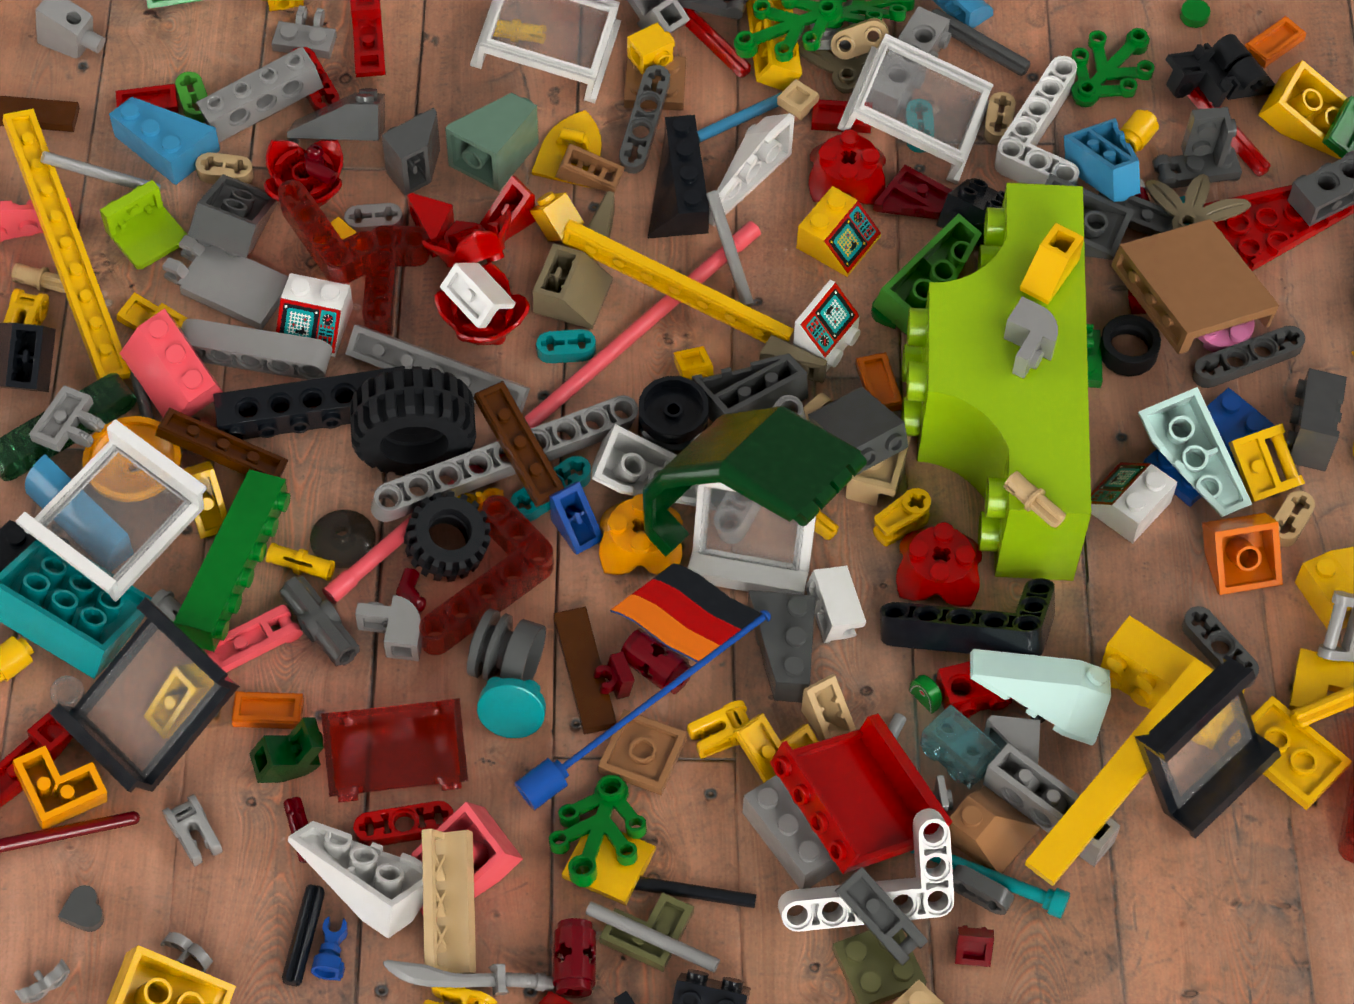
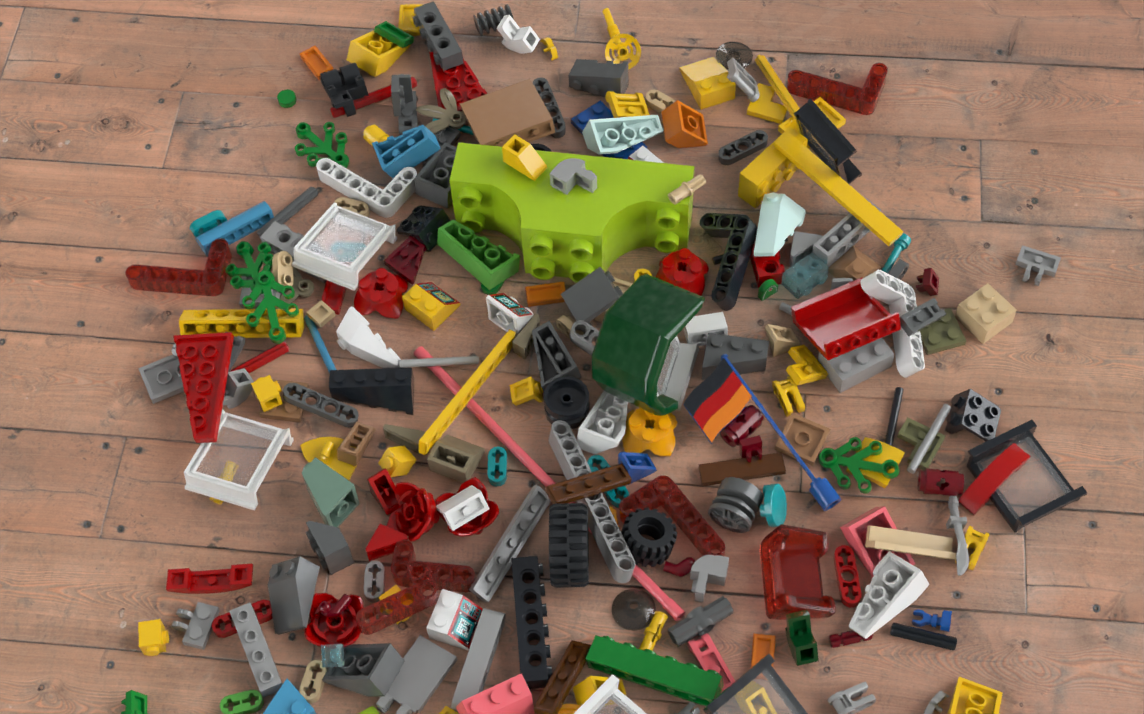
camera: 80 degrees left, 0 degrees up
(251, 176) = (332, 655): none -> clear light blue plate

